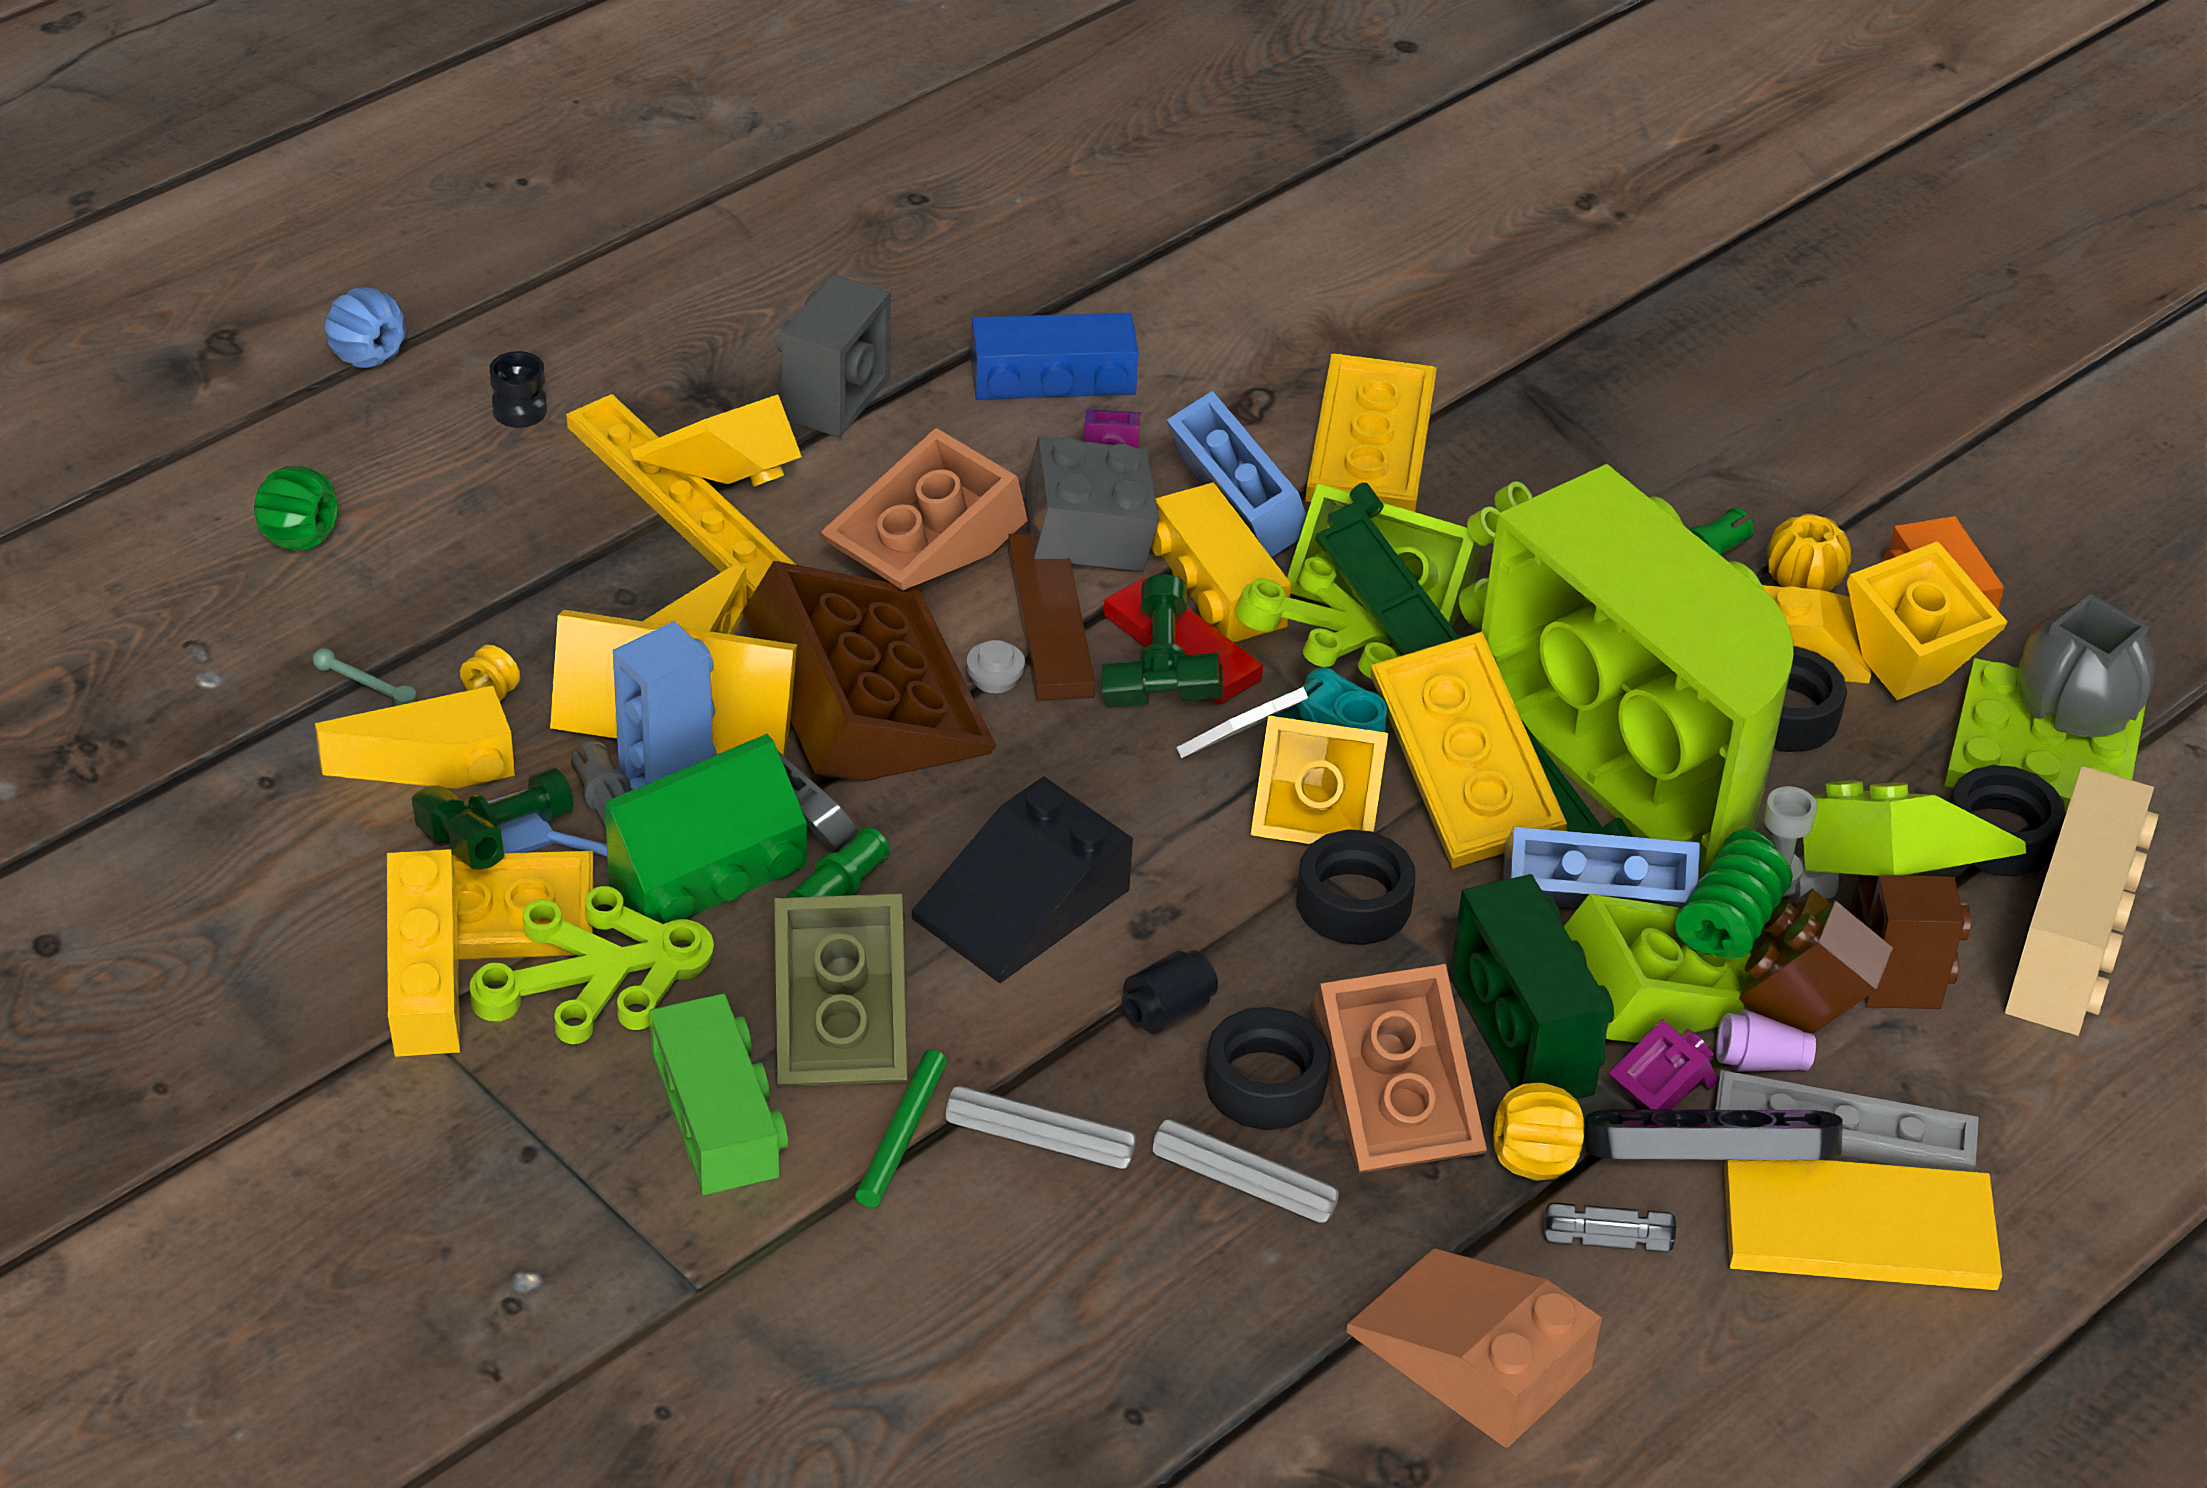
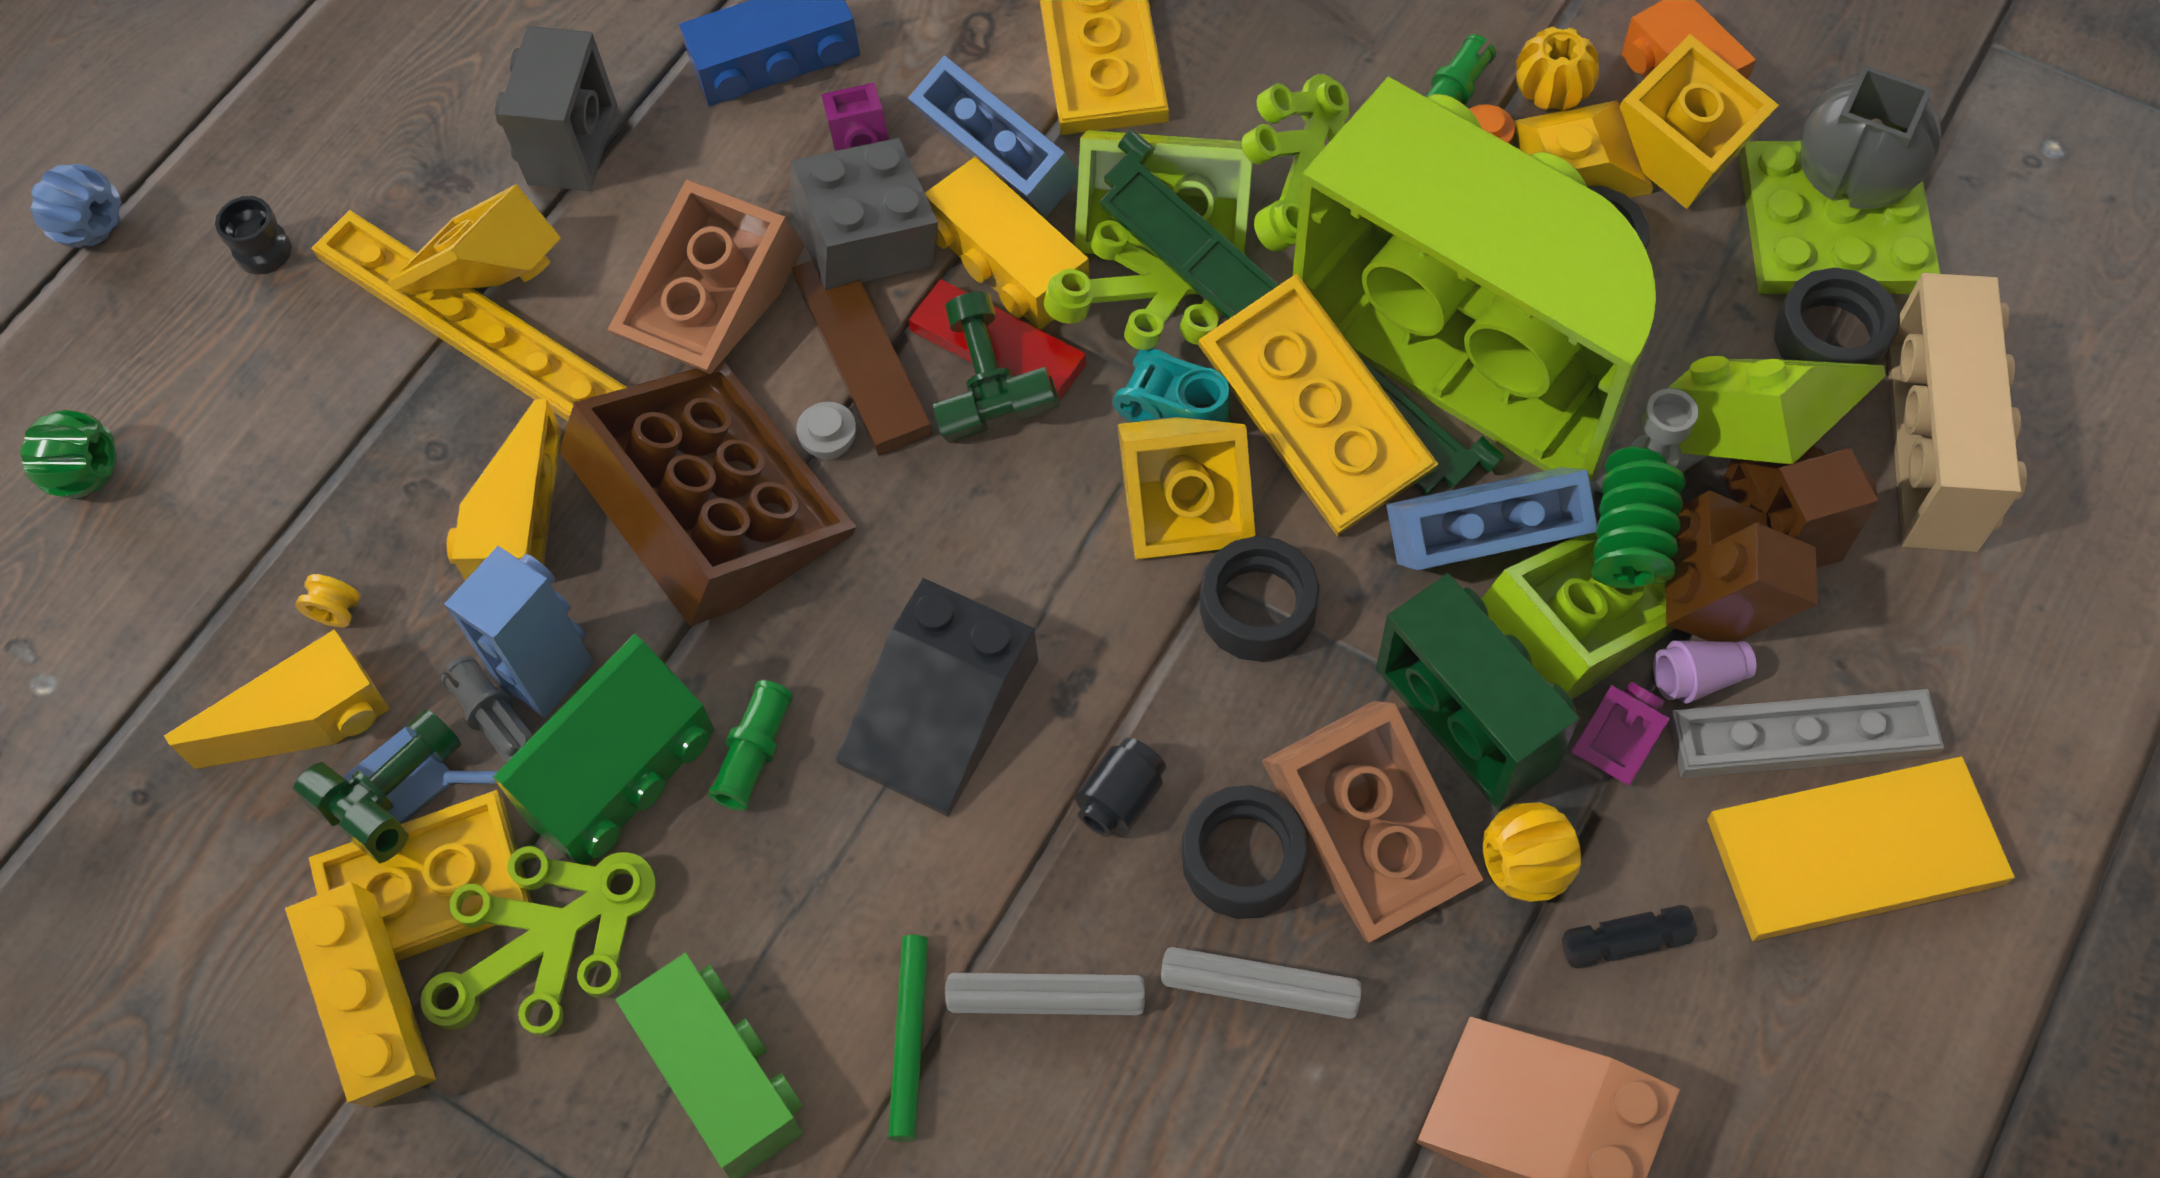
camera: 10 degrees left, 20 degrees up
(325, 659) = (248, 646): sand green hinge -> none
(748, 680) = (587, 550): yellow tile -> none
(821, 812) = (699, 668): dark grey piece -> none
(841, 990) = (800, 900): olive slope -> none
(1242, 722) = (1092, 440): white piece -> none
(1713, 1134) = (1788, 776): beam -> none

